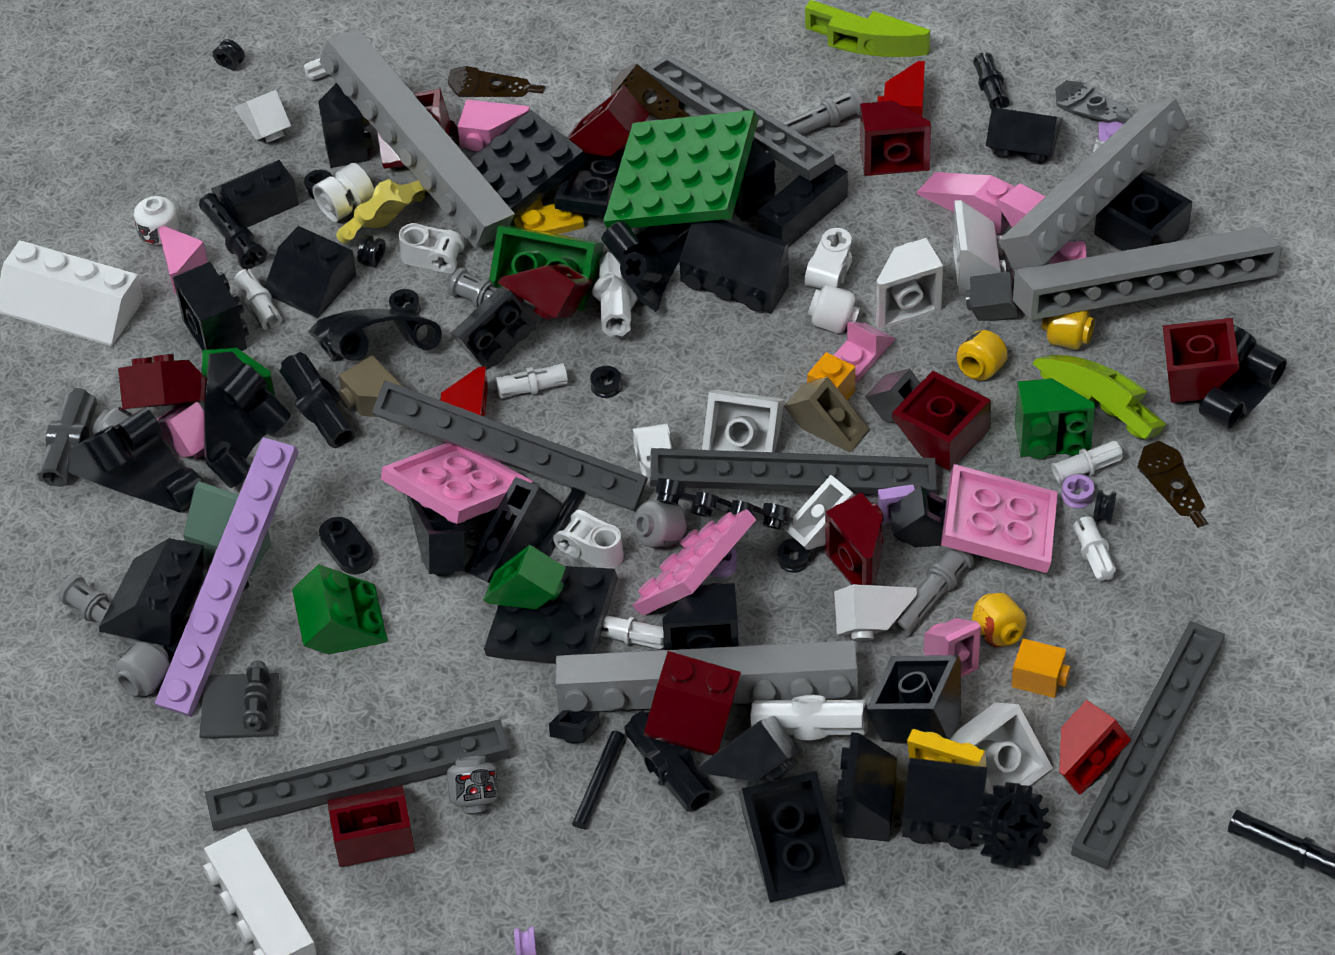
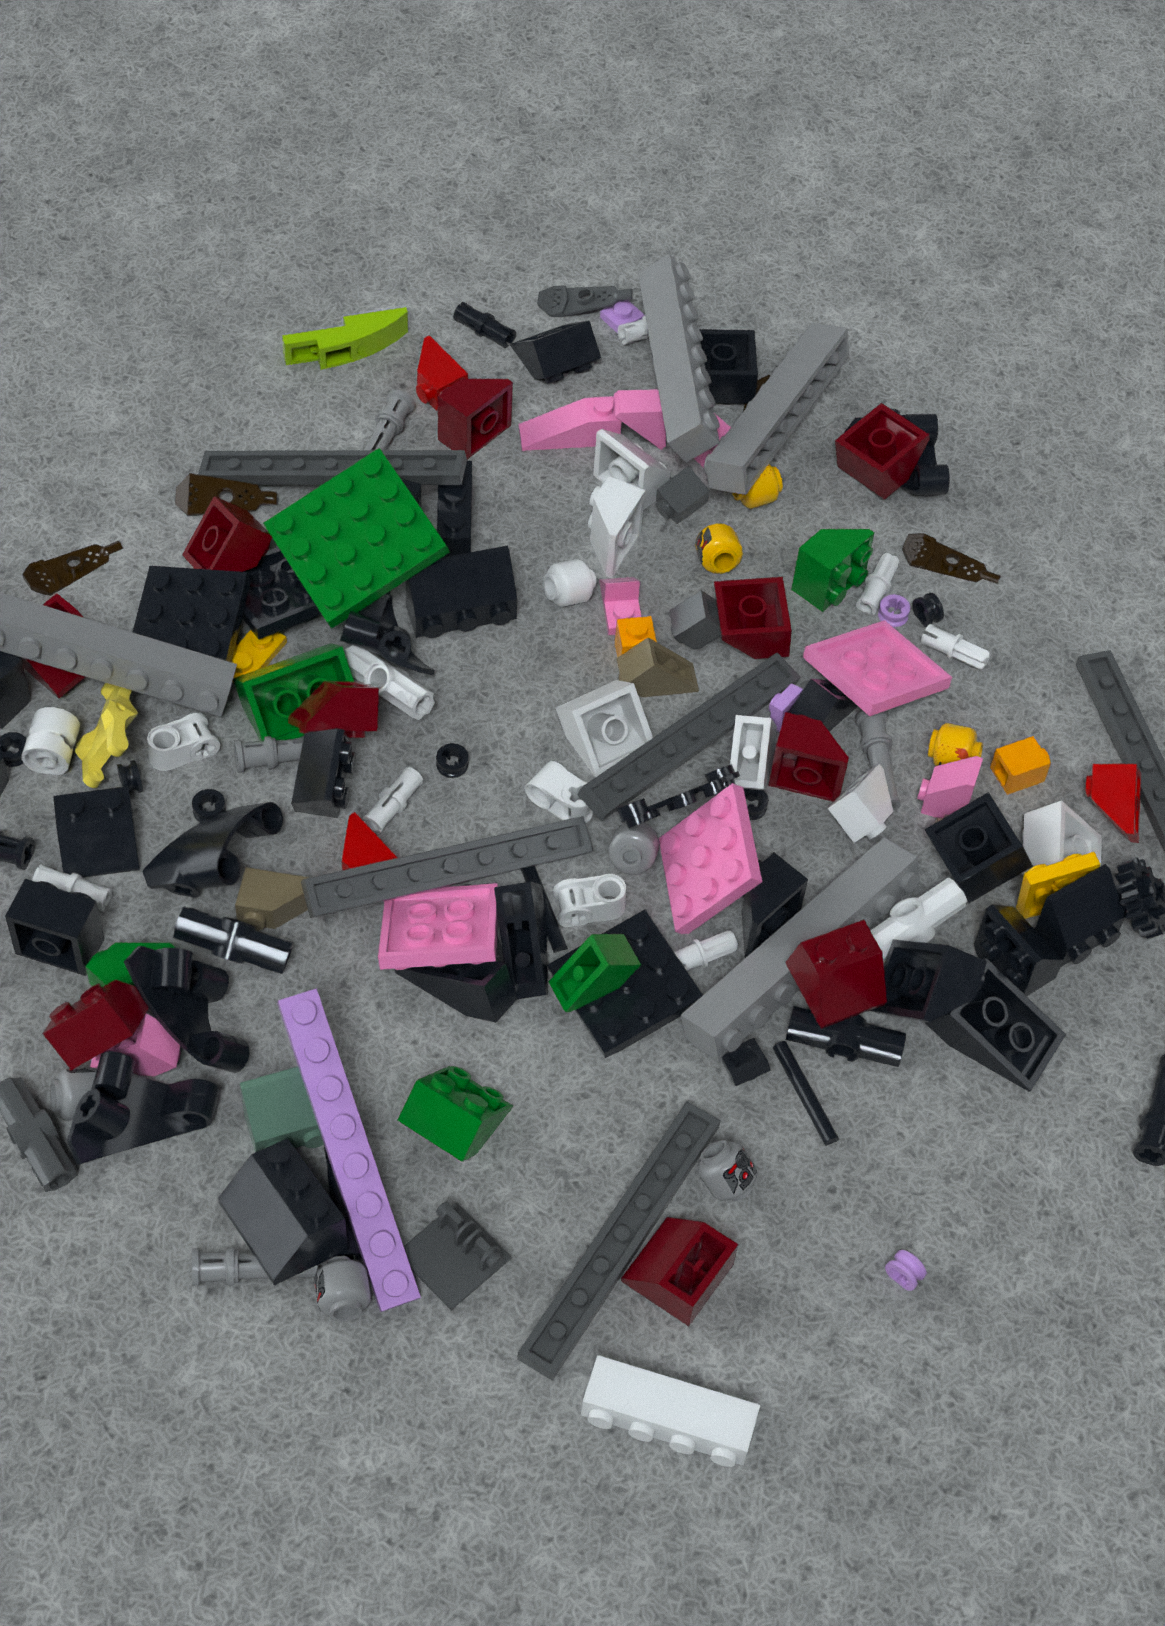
camera: 50 degrees left, 5 degrees up
(344, 543) = (388, 1051): black plate -> none
(486, 120) = (116, 598): bright pink slope -> none
(830, 259) = (526, 544): white piece -> none
(1098, 383) = (832, 513): lime slope -> none

